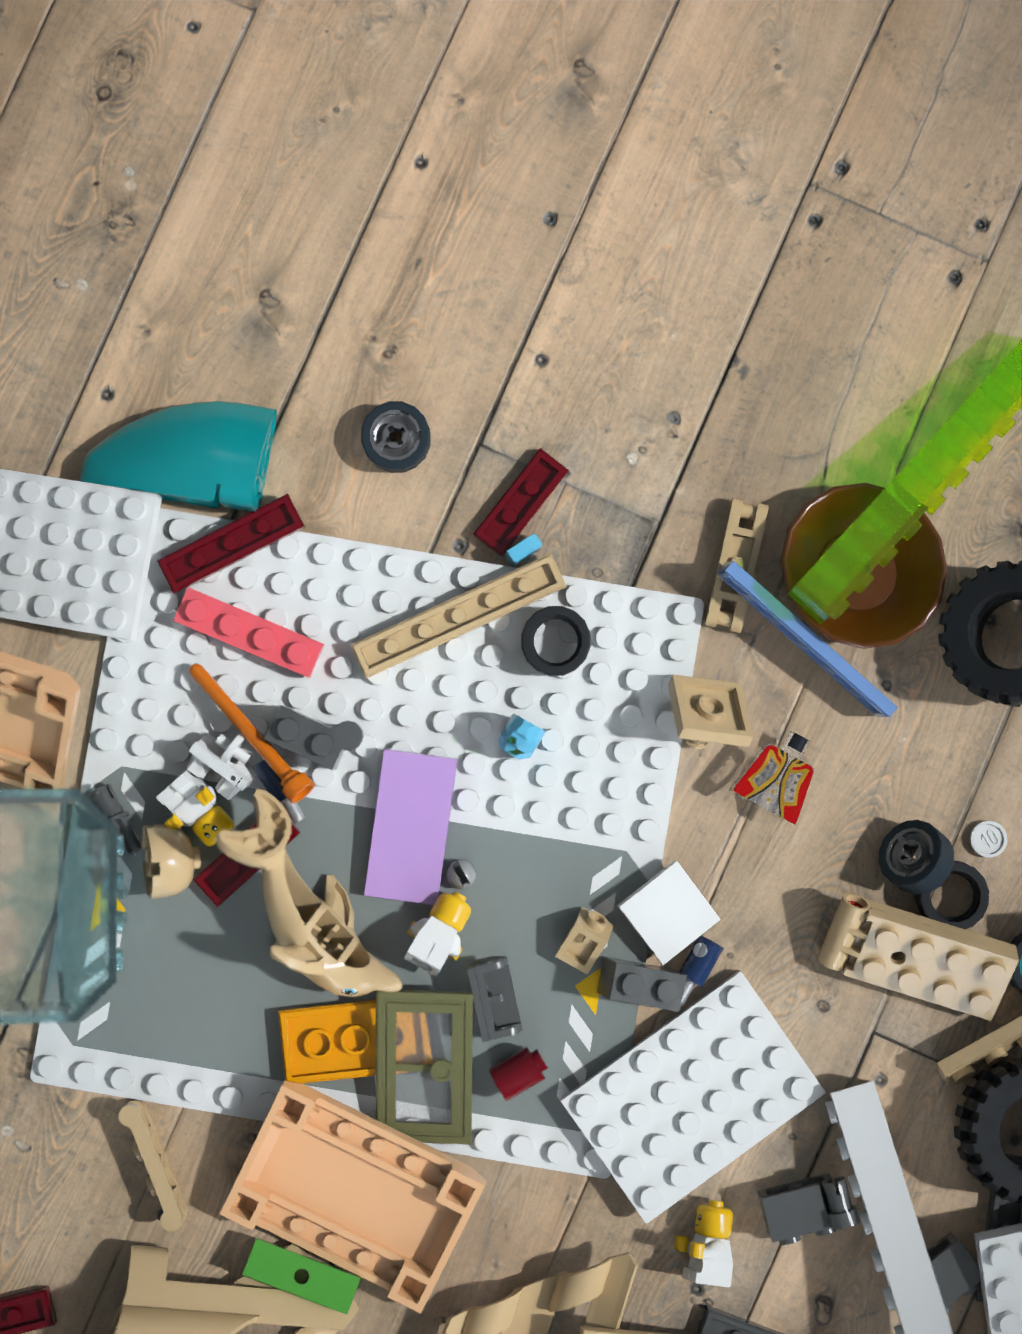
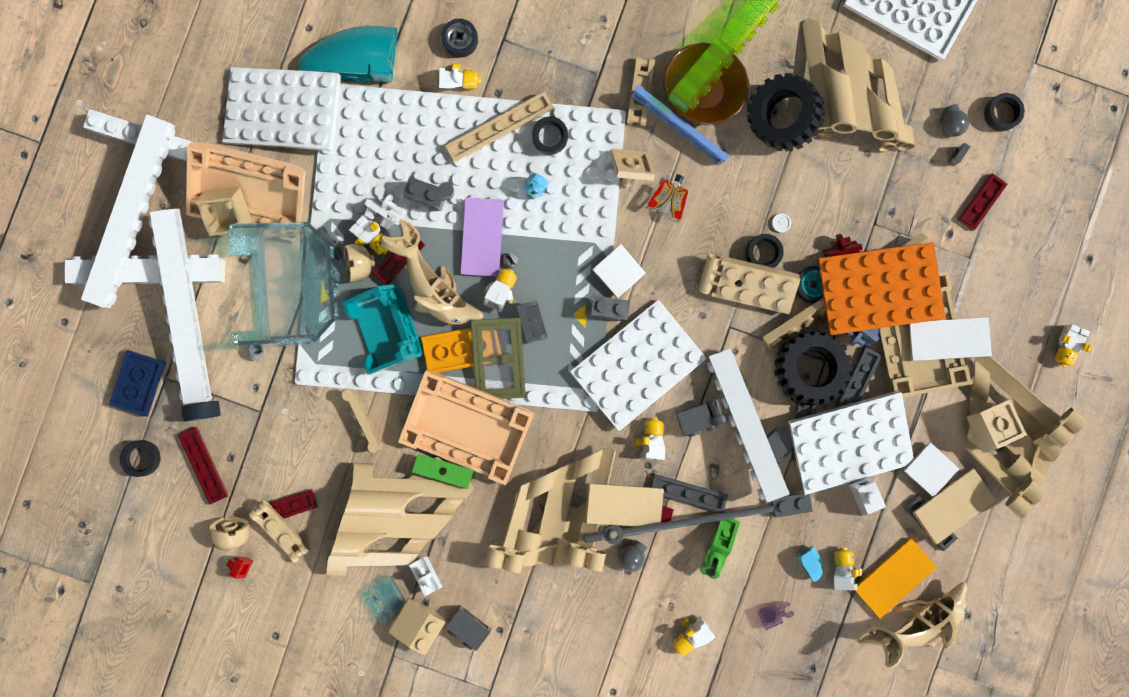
camera: 10 degrees left, 0 degrees up
(212, 992) = (385, 327): none -> teal windscreen
(231, 544) = (378, 98): dark red tile -> none
(249, 632) = (391, 143): coral plate -> none
(272, 785) = (409, 214): dark blue piece -> none
(294, 784) = (420, 216): orange piece -> none
(382, 516) = (467, 79): none -> piece
(518, 1072) = (547, 358): dark red brick -> none
(520, 502) = (527, 67): dark red tile -> none
(523, 550) = (530, 91): medium azure tile -> none
(585, 940) = (576, 288): tan bracket -> none
(699, 964) = (637, 297): dark blue piece -> none
(932, 853) = (744, 232): wheel -> none

